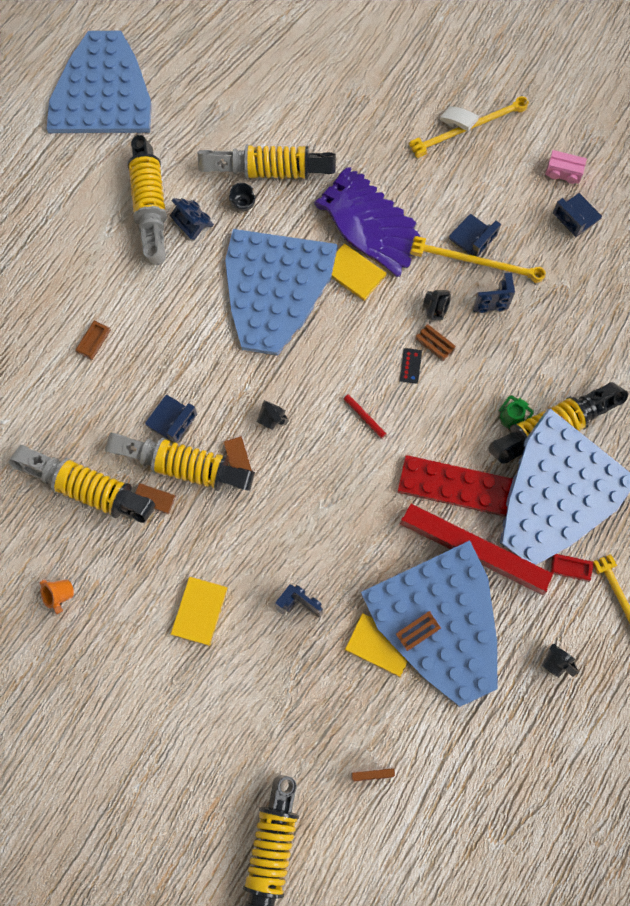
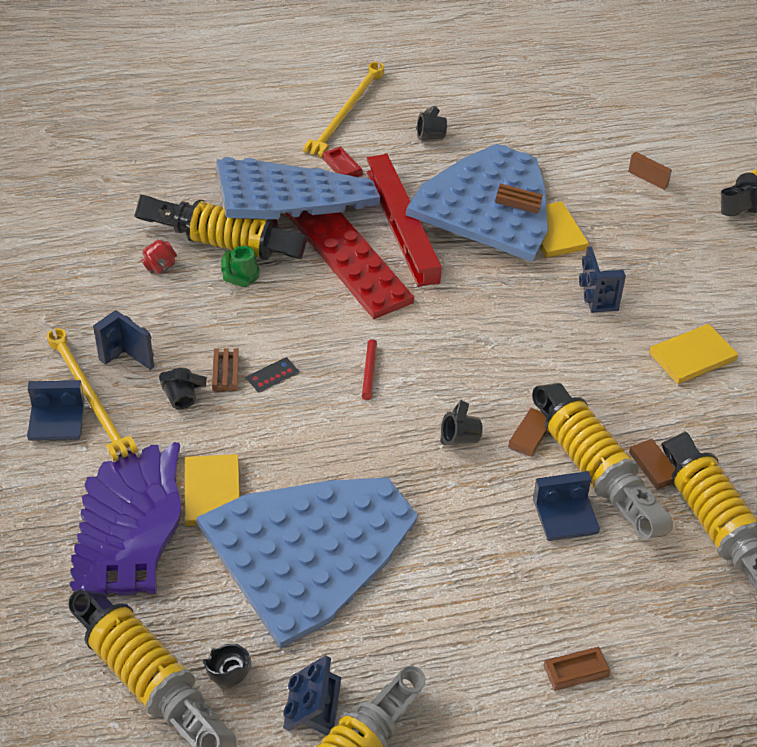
camera: 135 degrees left, 25 degrees down
(564, 373) = (158, 256): none -> red head

